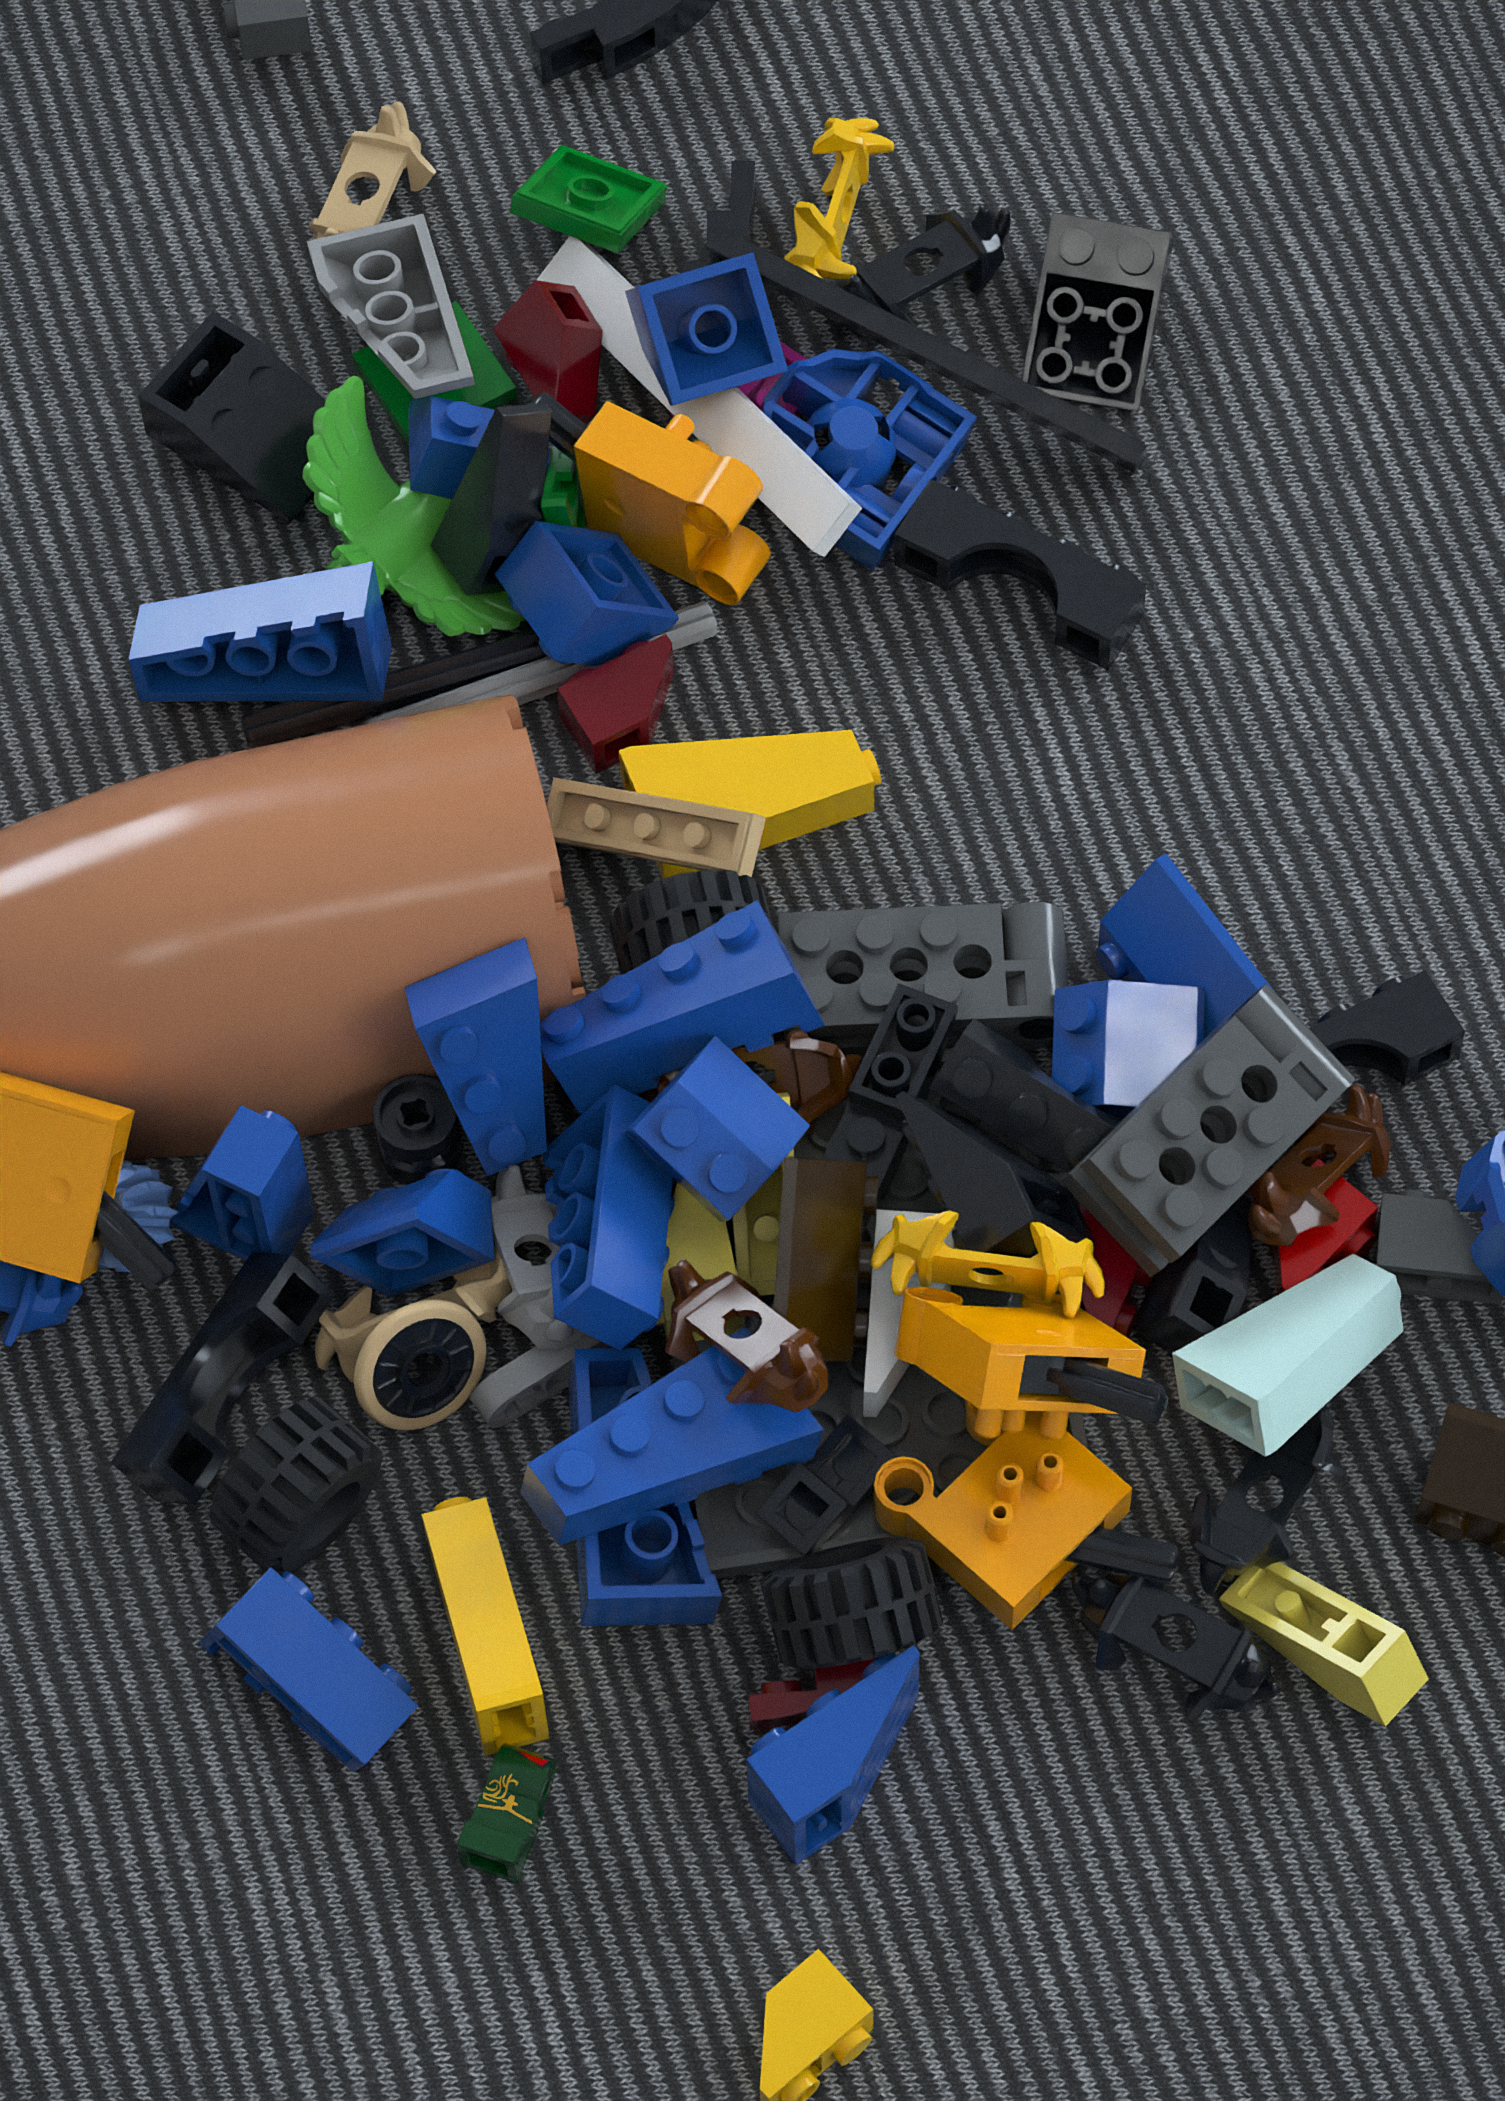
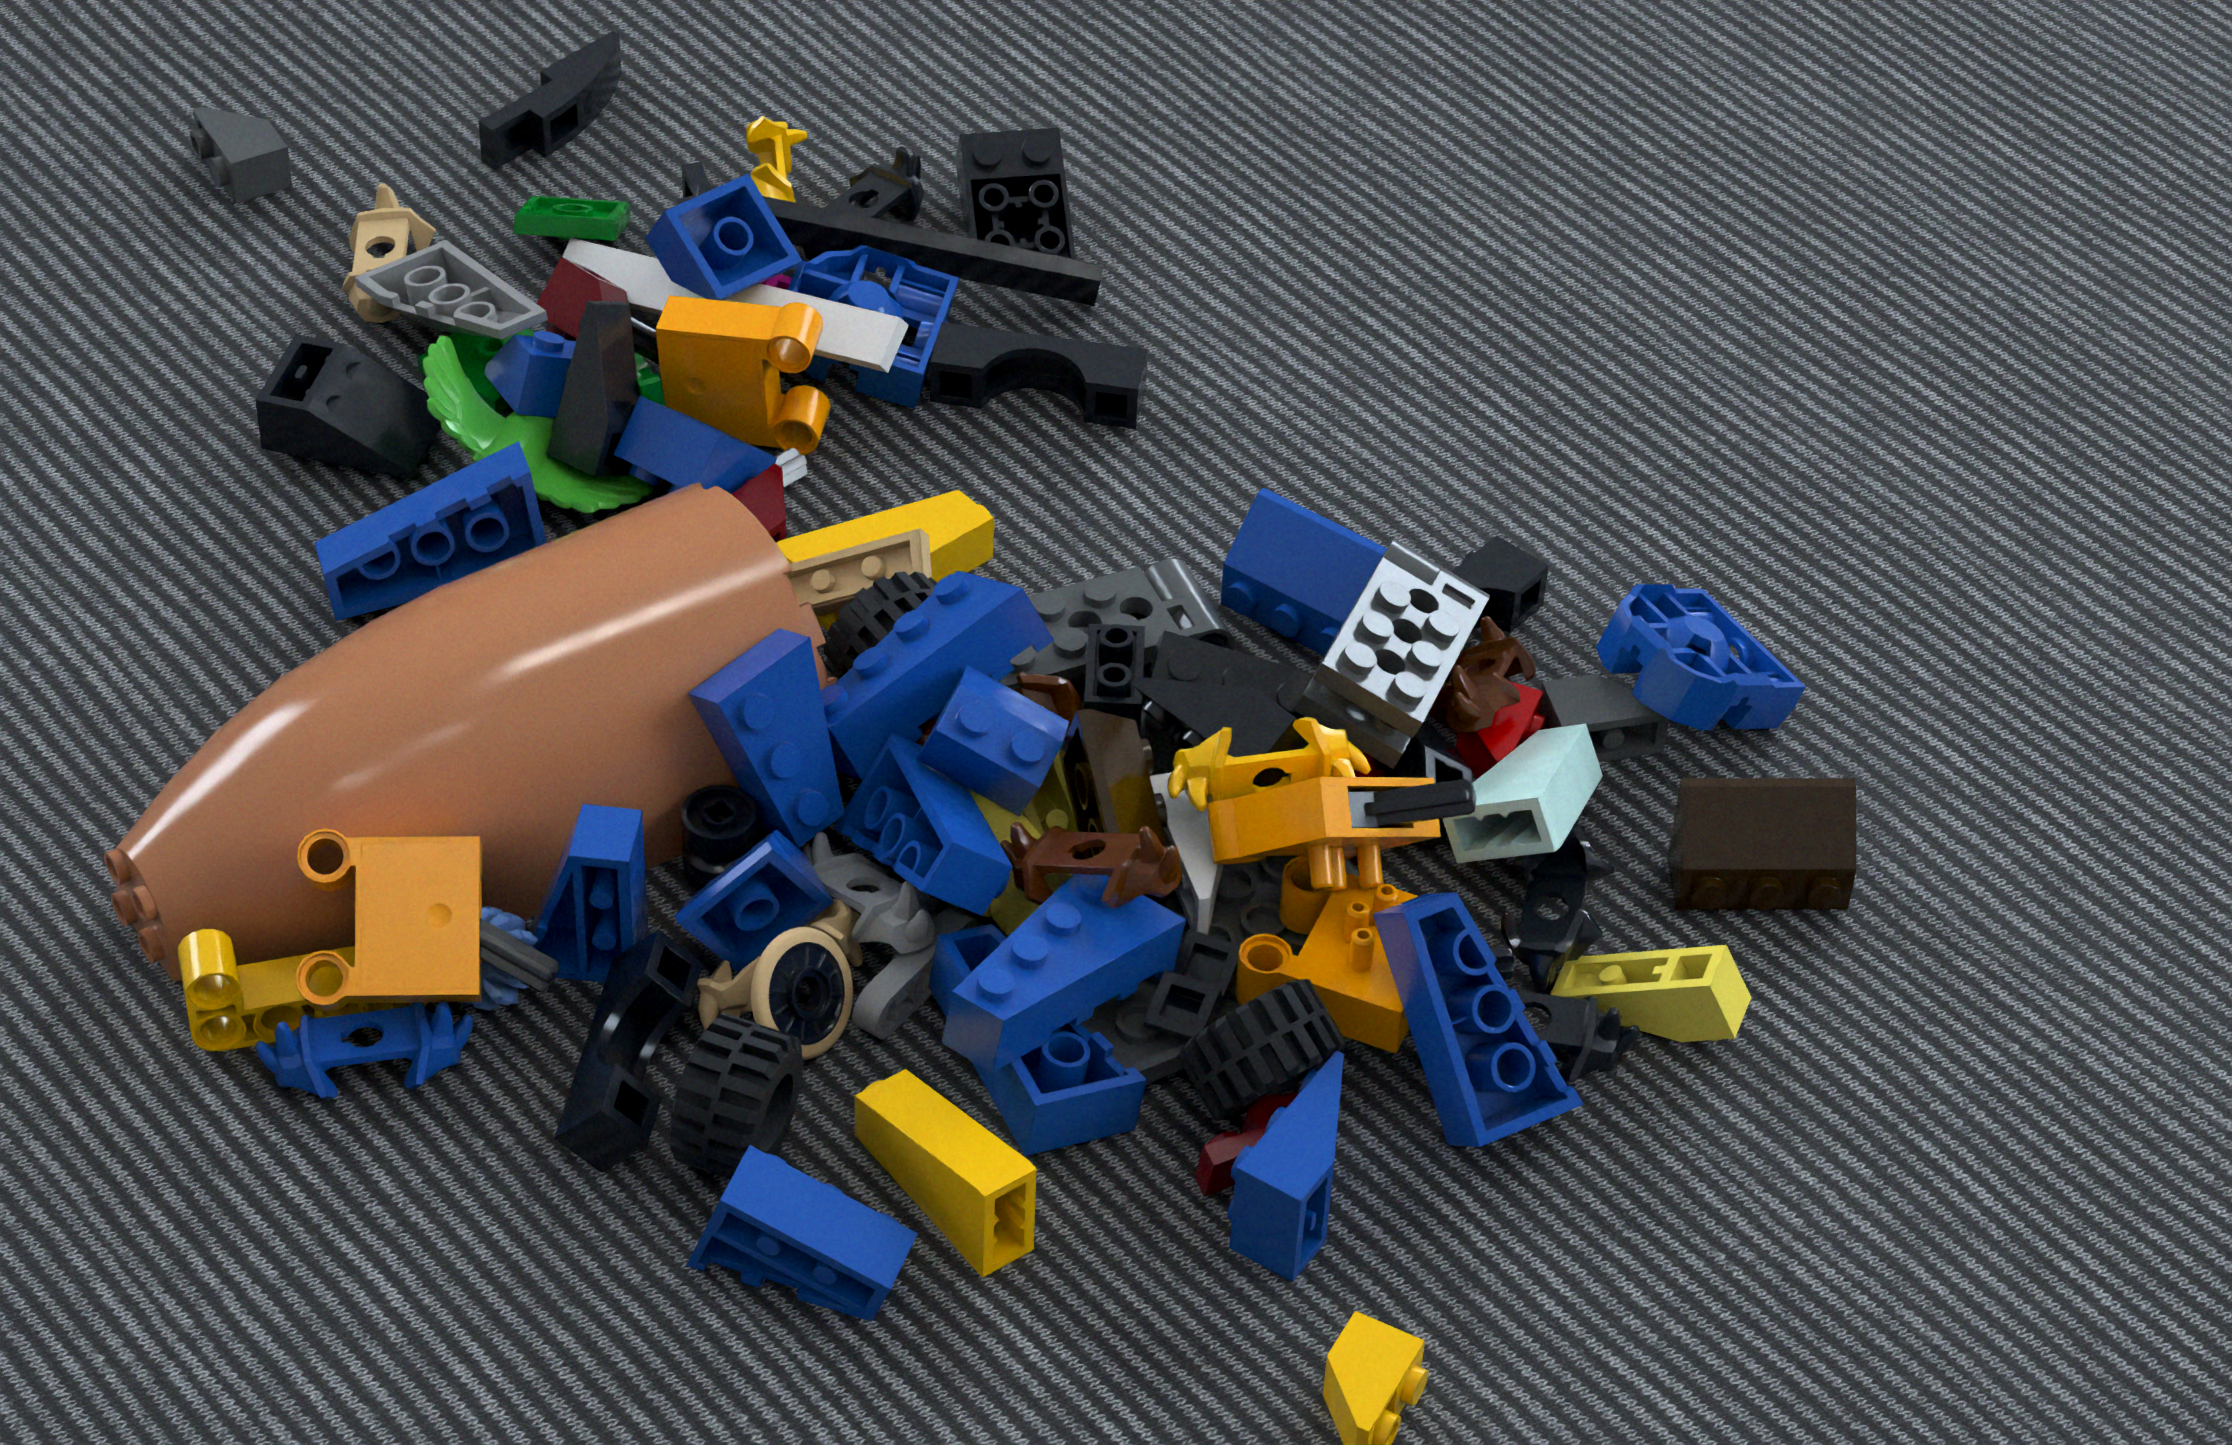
camera: 25 degrees left, 20 degrees down
(507, 1813) = (1029, 1304): dark green leg -> none
(1079, 1669) = (1467, 1025): none -> blue wedge
(1122, 1039) = (1285, 619): slope -> none

